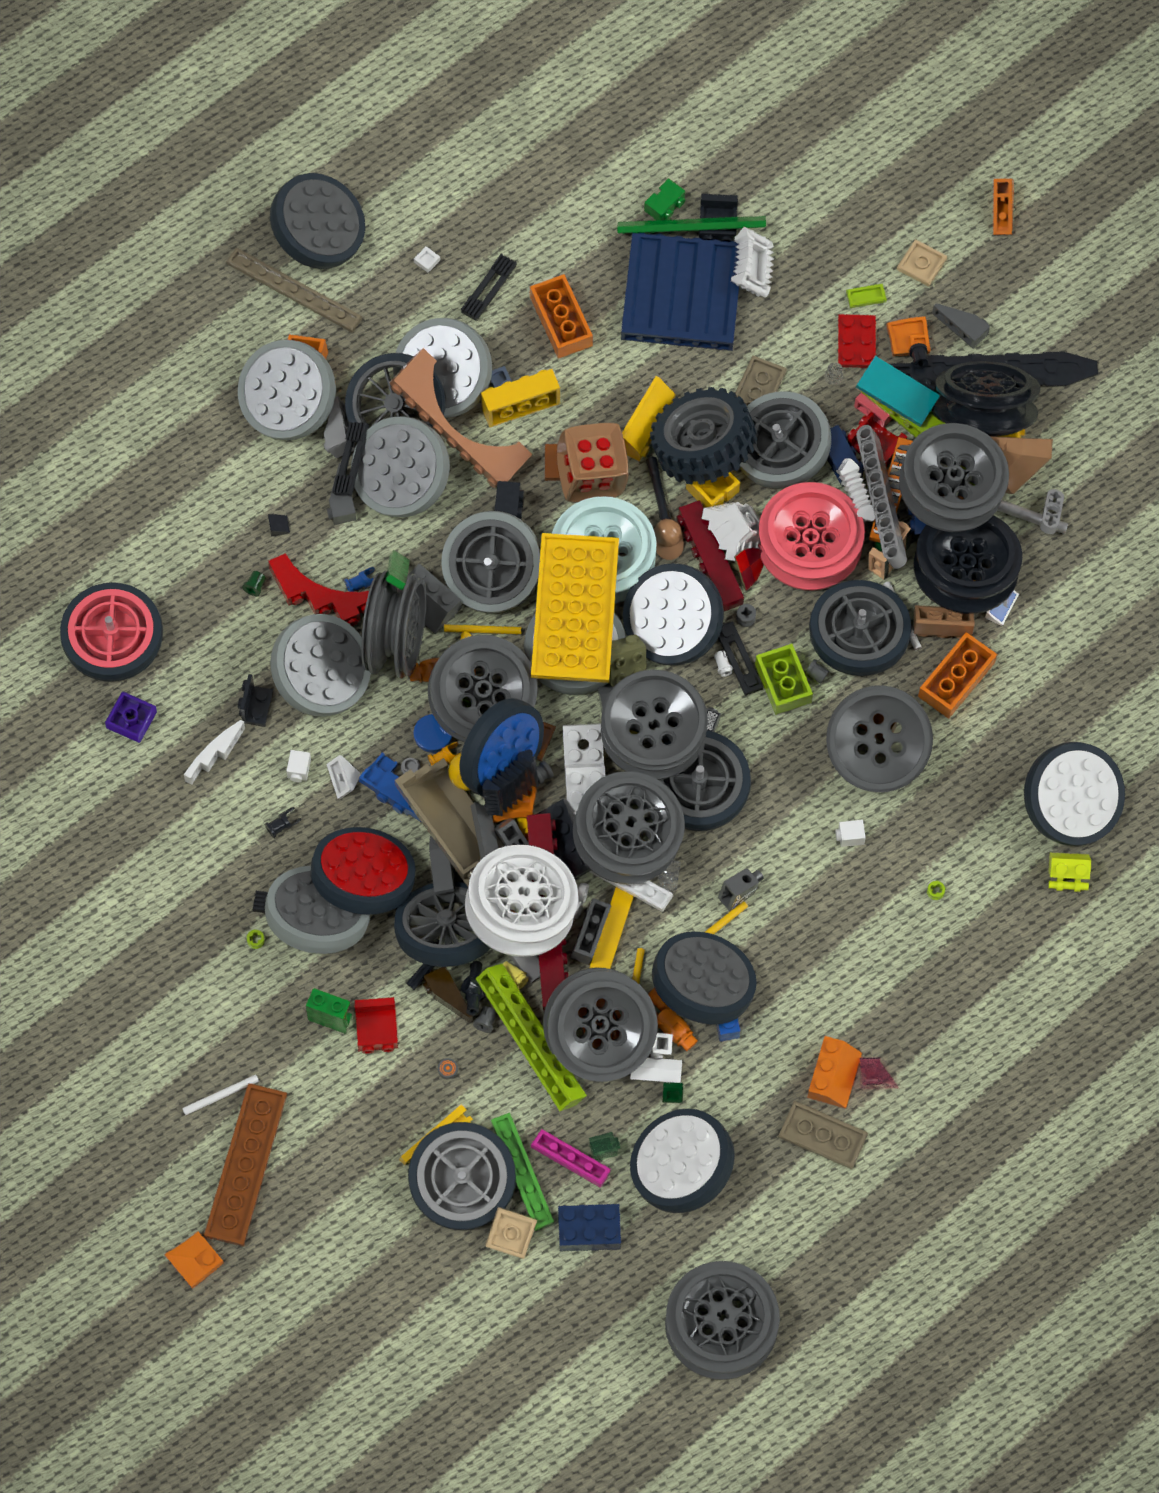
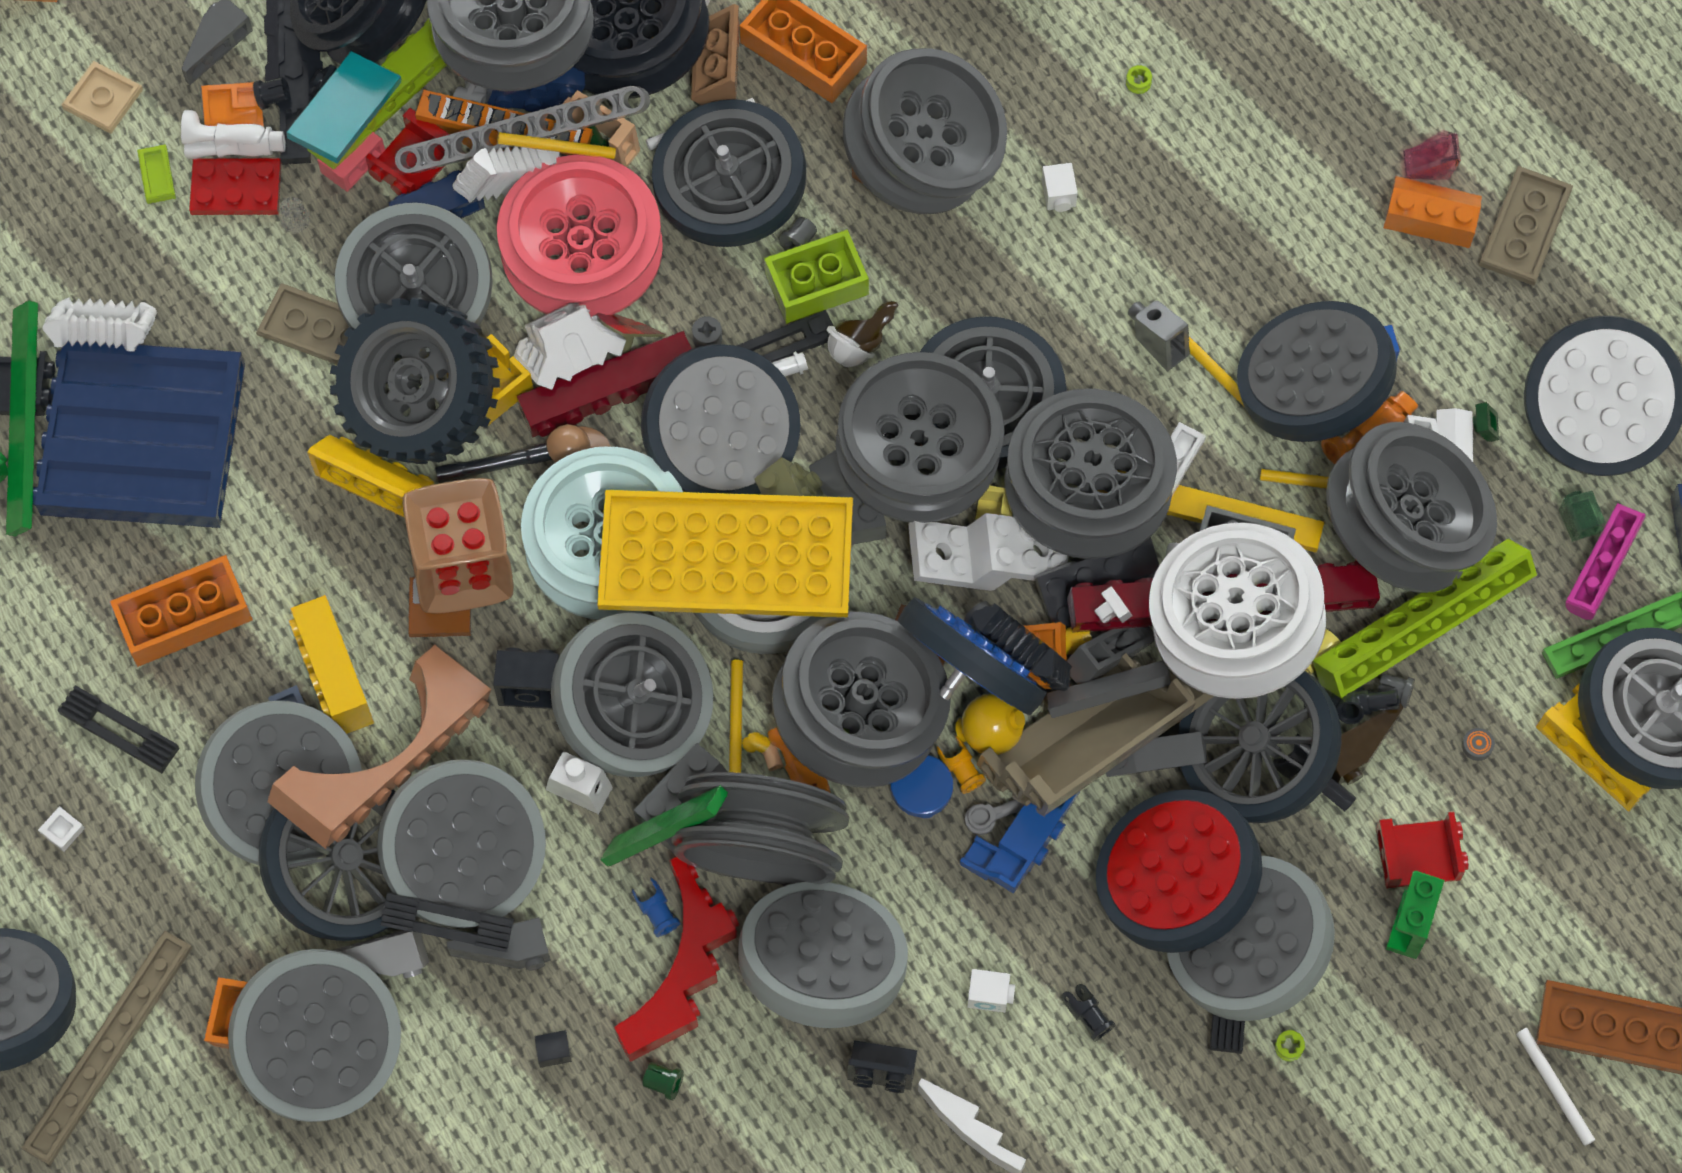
camera: 90 degrees left, 0 degrees up
(343, 776) = (1002, 922): white slope -> none
(438, 534) = (577, 782): none -> white torso
(533, 834) = (1112, 607): none -> white tile
(740, 703) = (856, 340): none -> piece
(867, 514) = (556, 145): none -> yellow piece
(884, 329) = (228, 139): none -> white piece

